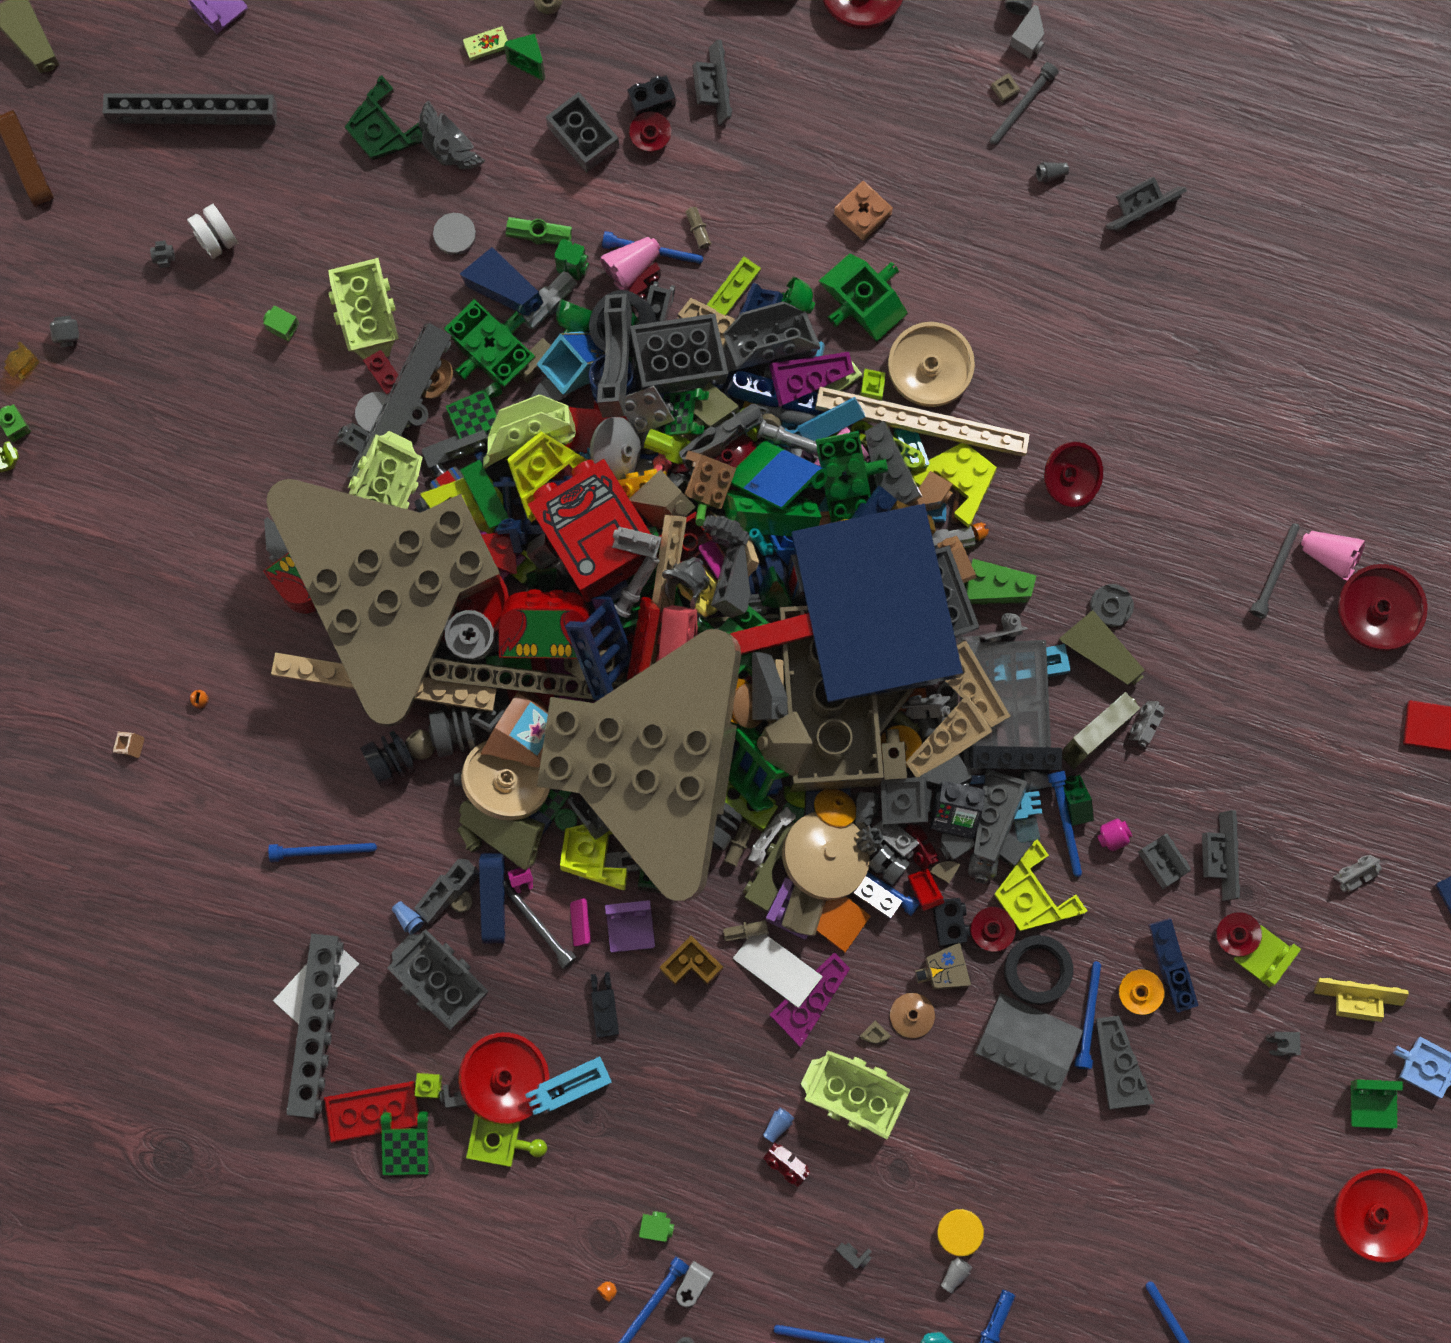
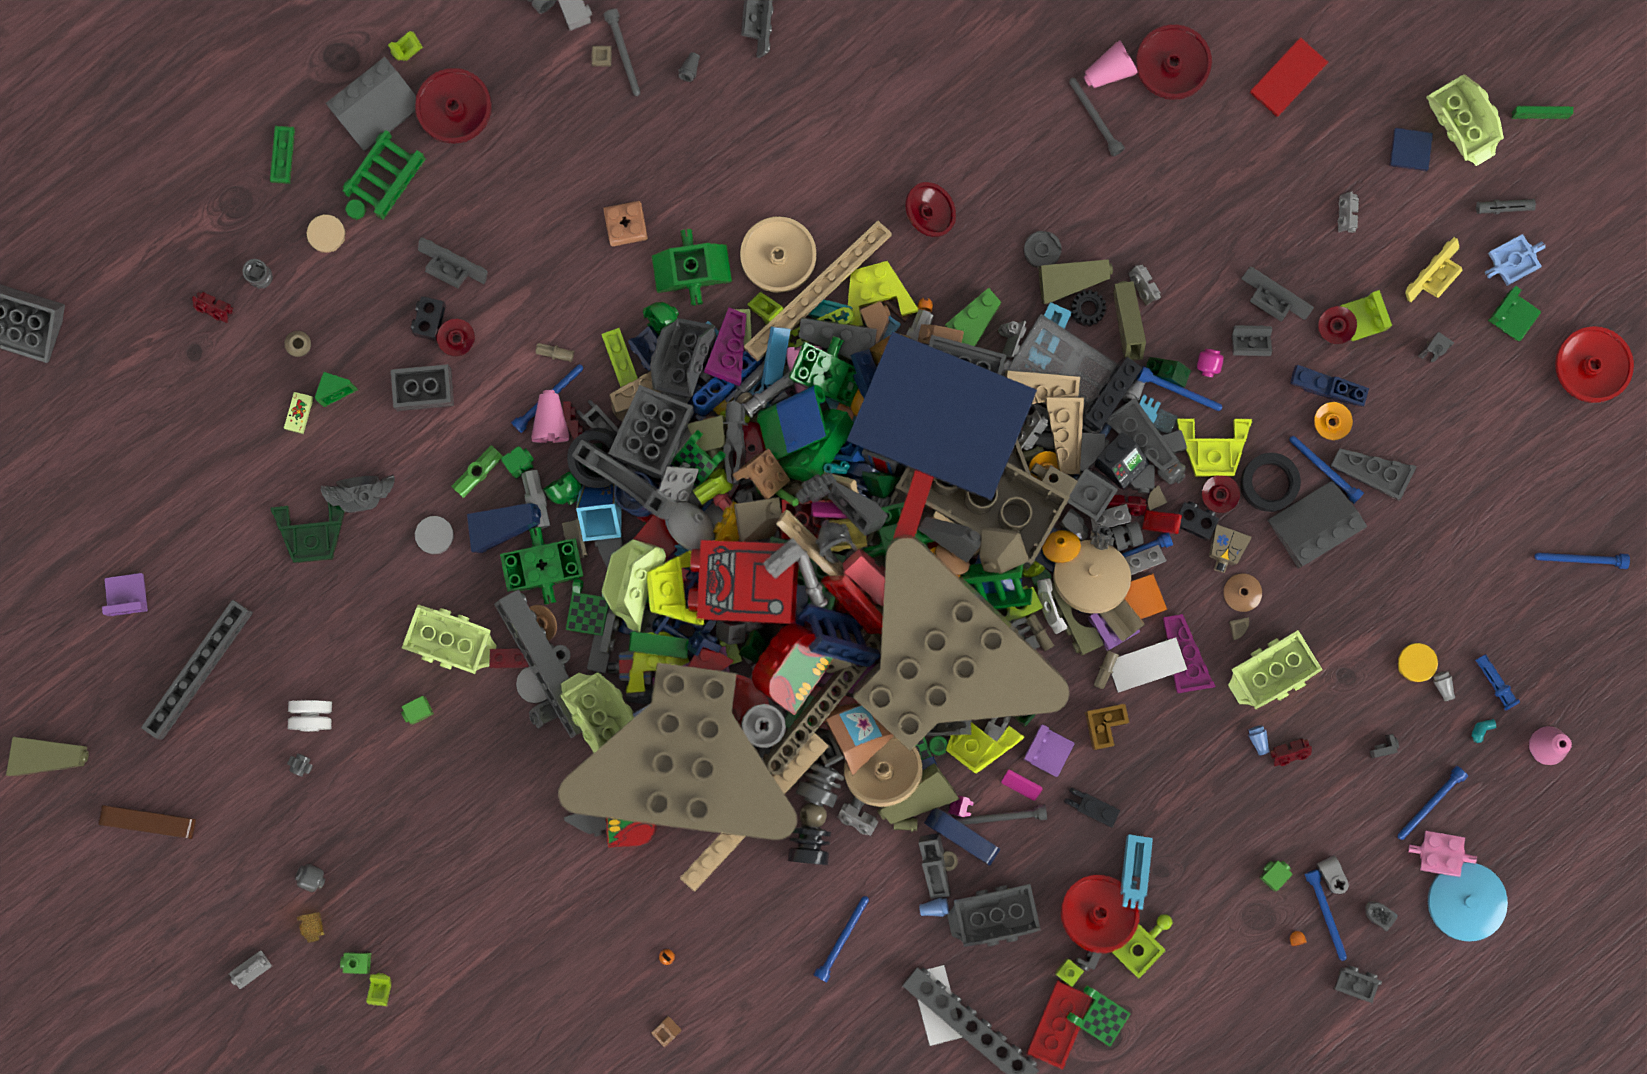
camera: 55 degrees left, 5 degrees up
(442, 781) = (849, 816): none -> light grey hinge
(1079, 696) = (1091, 297): none -> black tyre

